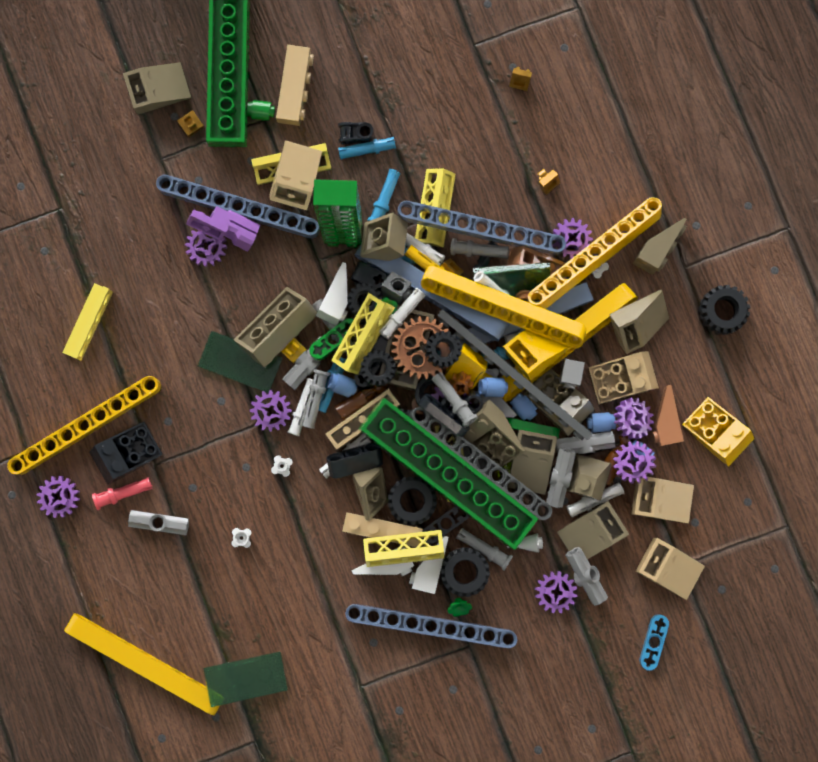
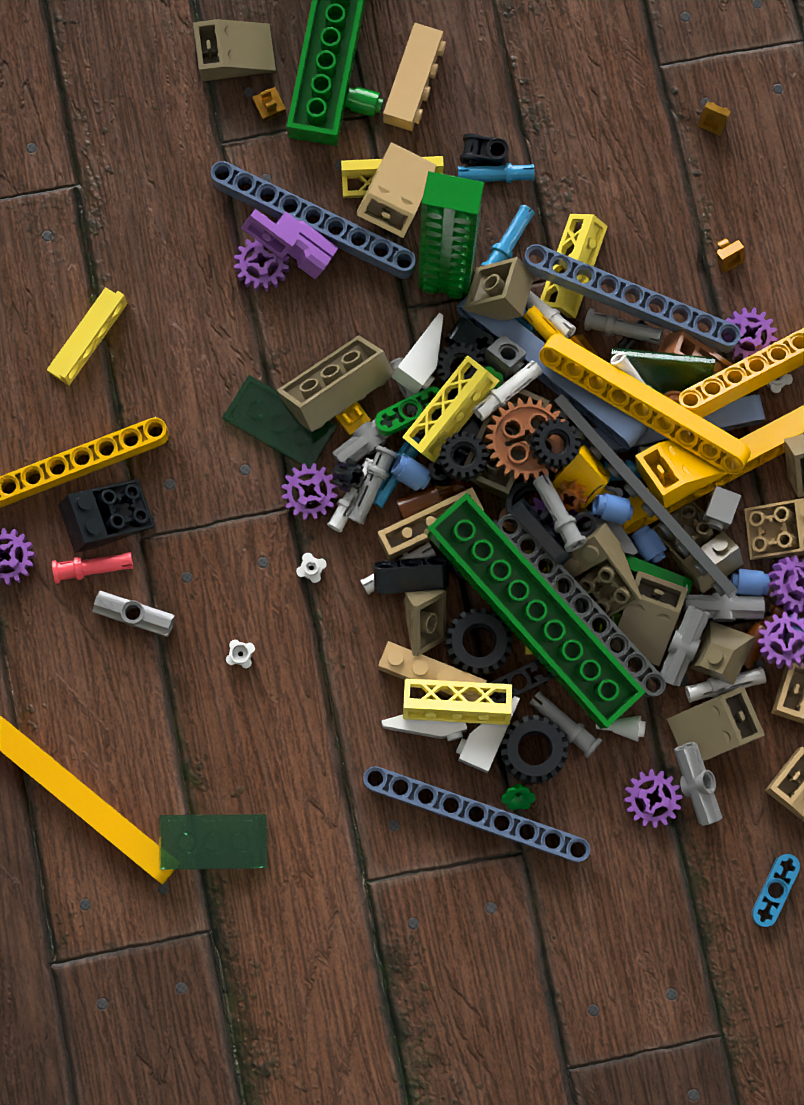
camera: 10 degrees right, 5 degrees down
(296, 395) = (348, 475): none -> black gear

